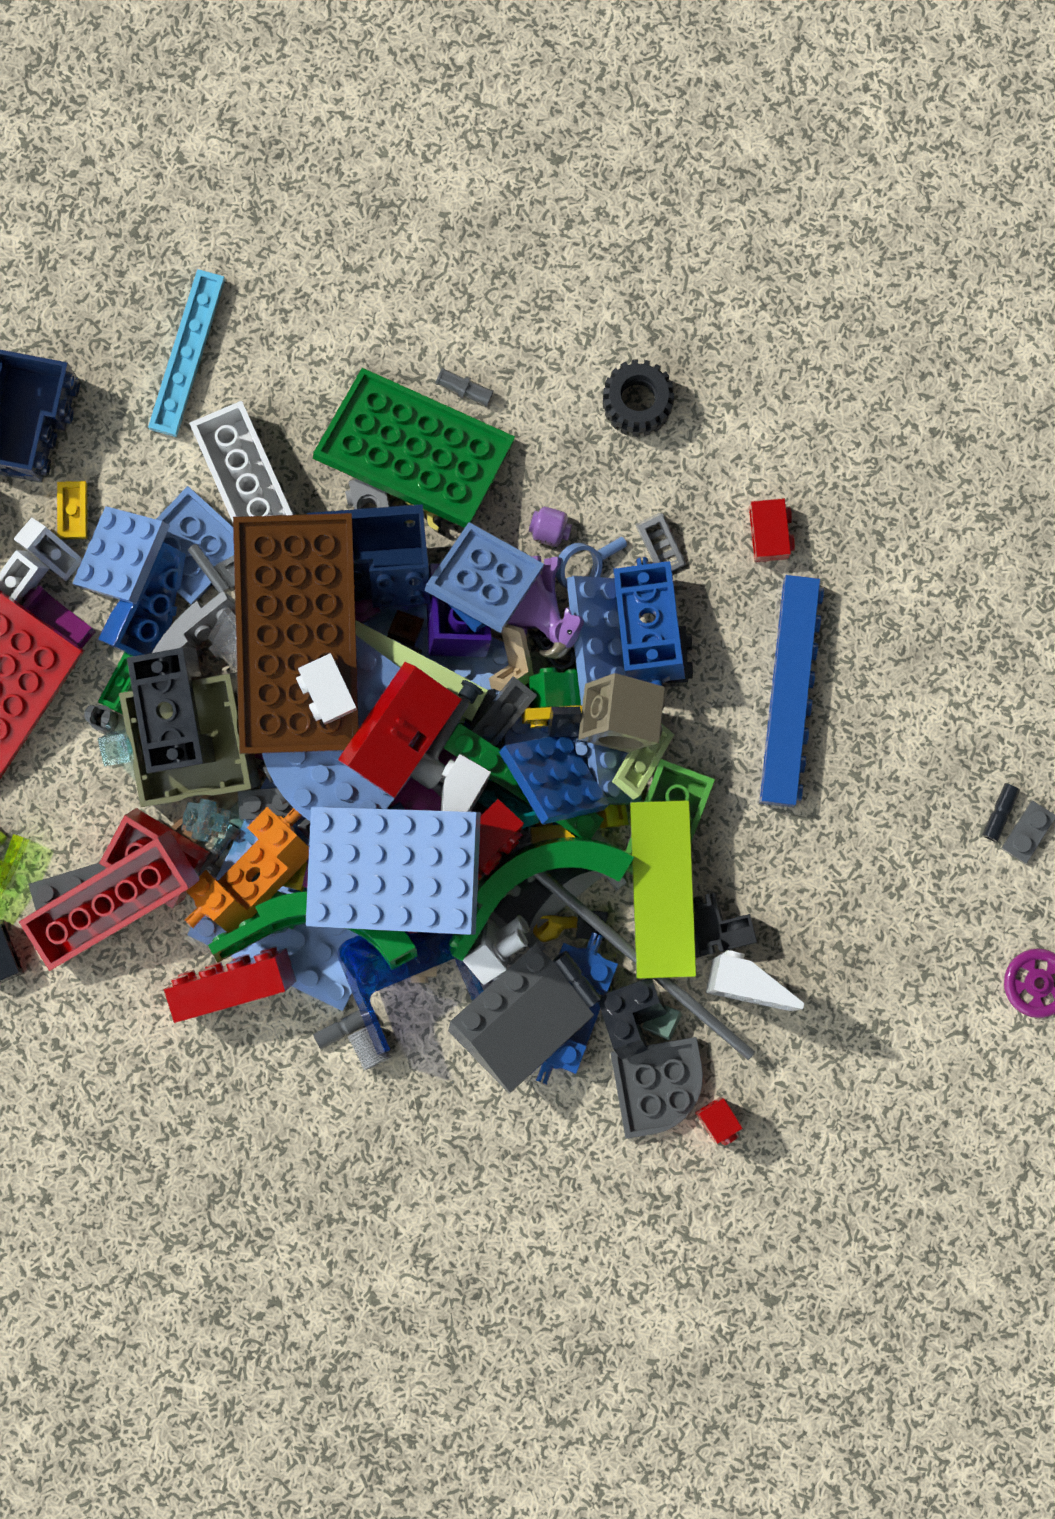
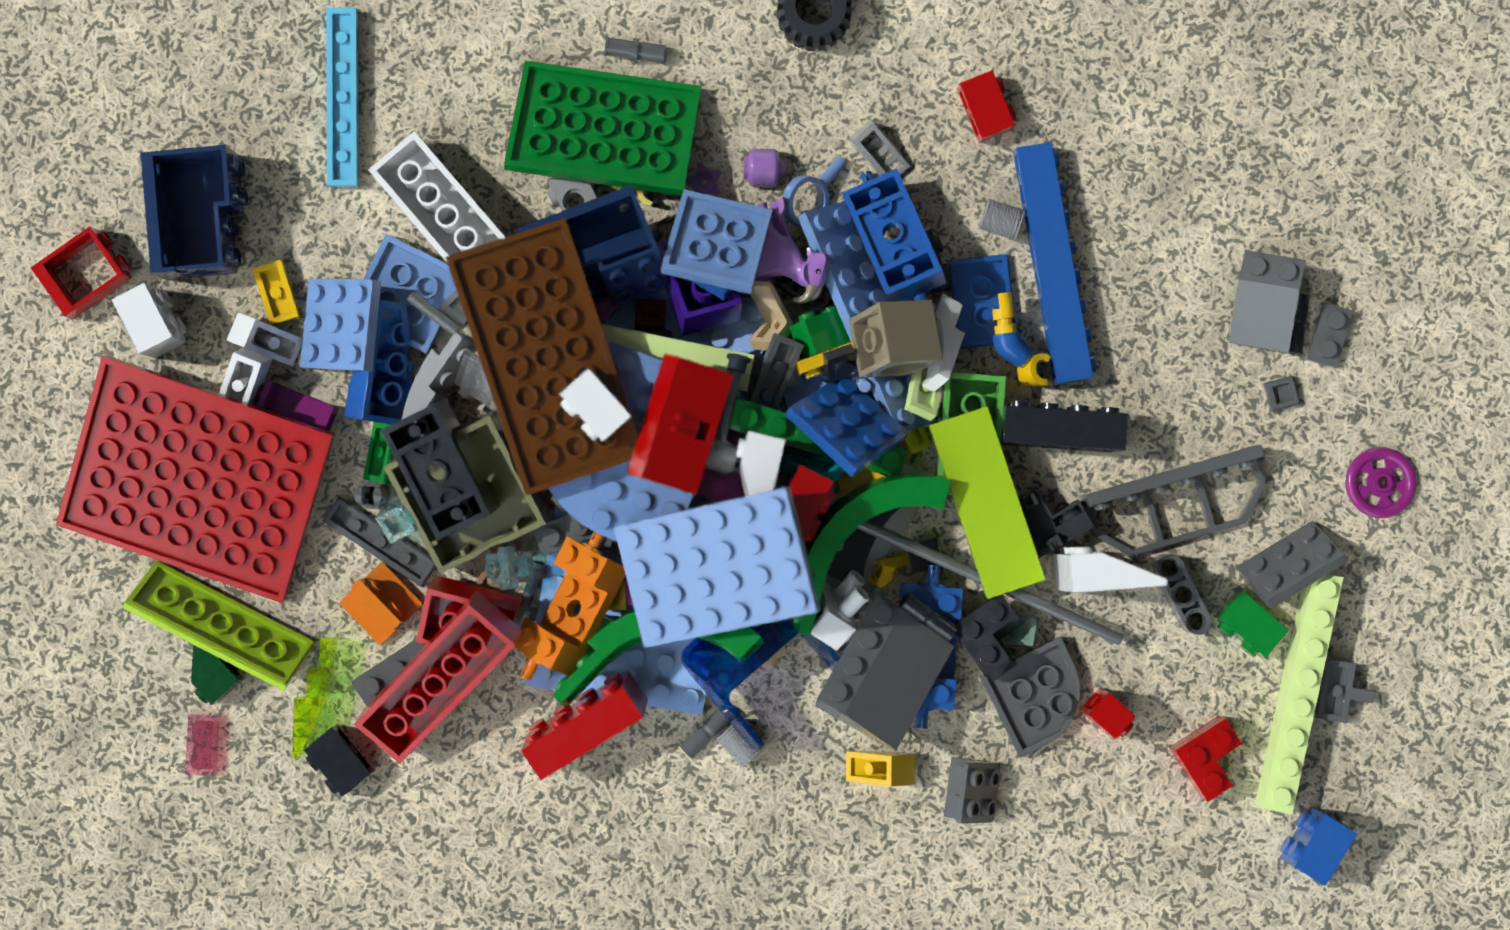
camera: 20 degrees left, 5 degrees up
(78, 819) = (381, 603): none -> orange bracket
(87, 755) = (368, 534): none -> dark grey tile
(493, 515) = (703, 173): none -> medium lavender plate
(493, 1109) = (880, 768): none -> yellow slope
(572, 1157) = (972, 790): none -> dark grey bracket
(676, 707) = (947, 314): none -> white slope
(715, 707) = (976, 287): none -> blue tile
(729, 755) = (1012, 347): none -> yellow piece
(753, 843) = (1064, 429): none -> black brick
(754, 636) = (1002, 219): none -> light grey piece
(793, 1188) = (1199, 756): none -> red brick
(829, 920) = (1160, 482): none -> dark grey plate
(830, 1042) = (1193, 602): none -> dark grey beam
(877, 1078) = (1250, 624): none -> green brick
(879, 1303) = (1317, 845): none -> blue brick
(905, 1154) = (1298, 694): none -> yellowish green brick
(931, 1032) = (1291, 564): none -> dark grey plate
(943, 1166) = (1339, 691): none -> dark grey hinge
(968, 873) = (1281, 393): none -> dark grey tile
(978, 782) = (1267, 301): none -> slope

